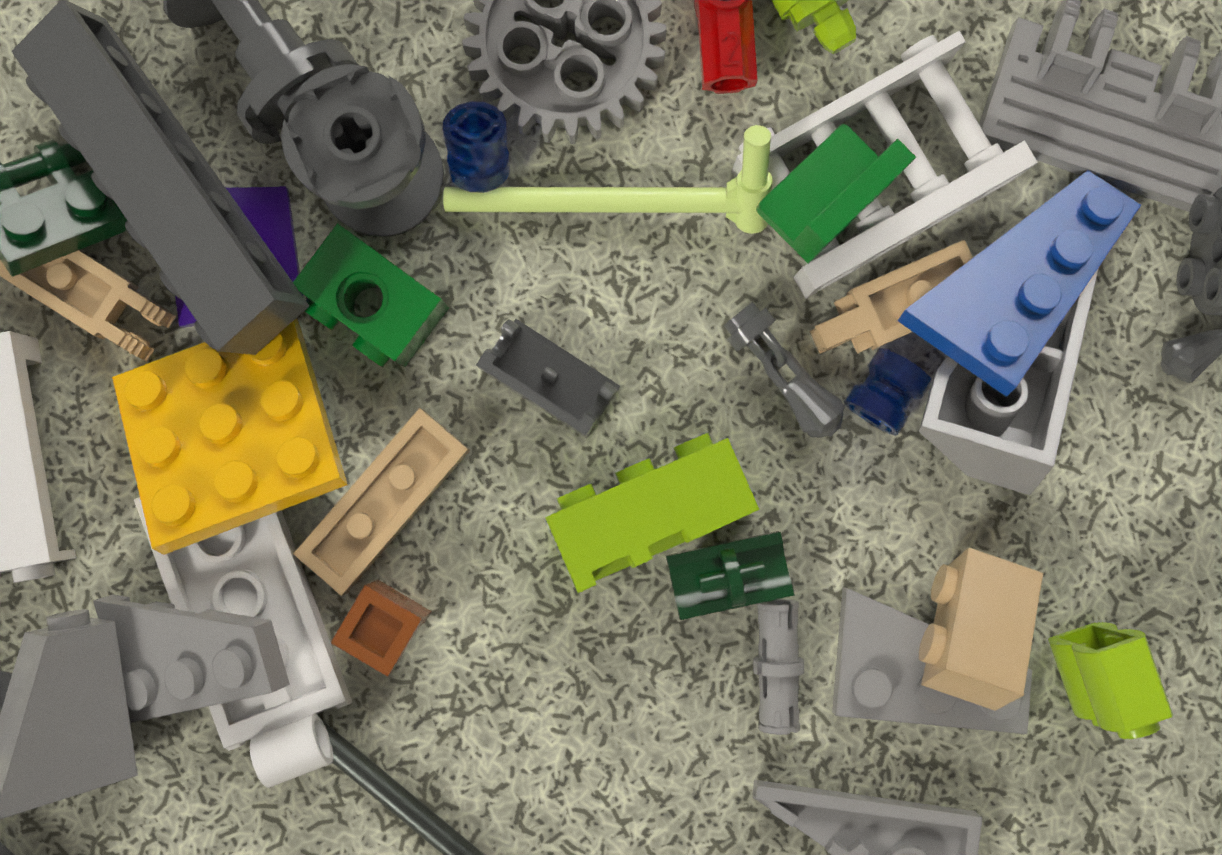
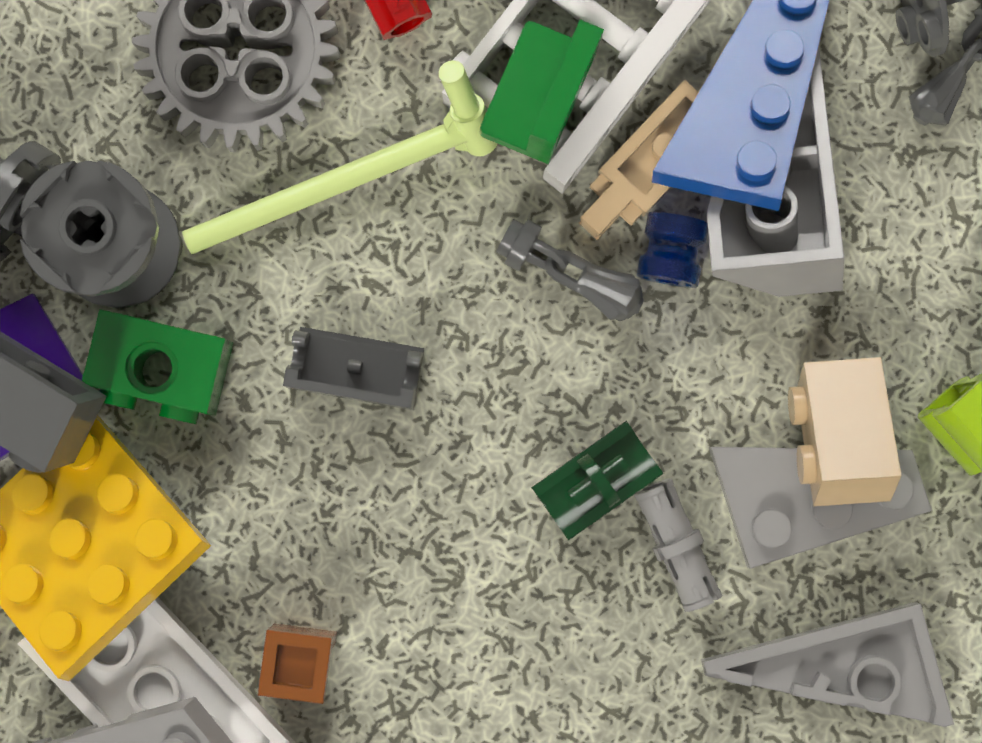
camera: 20 degrees left, 0 degrees up
(381, 502) = (248, 549): tan plate -> none
(476, 146) = (197, 183): clear blue wheel -> none
(650, 510) = (499, 451): lime wedge -> none

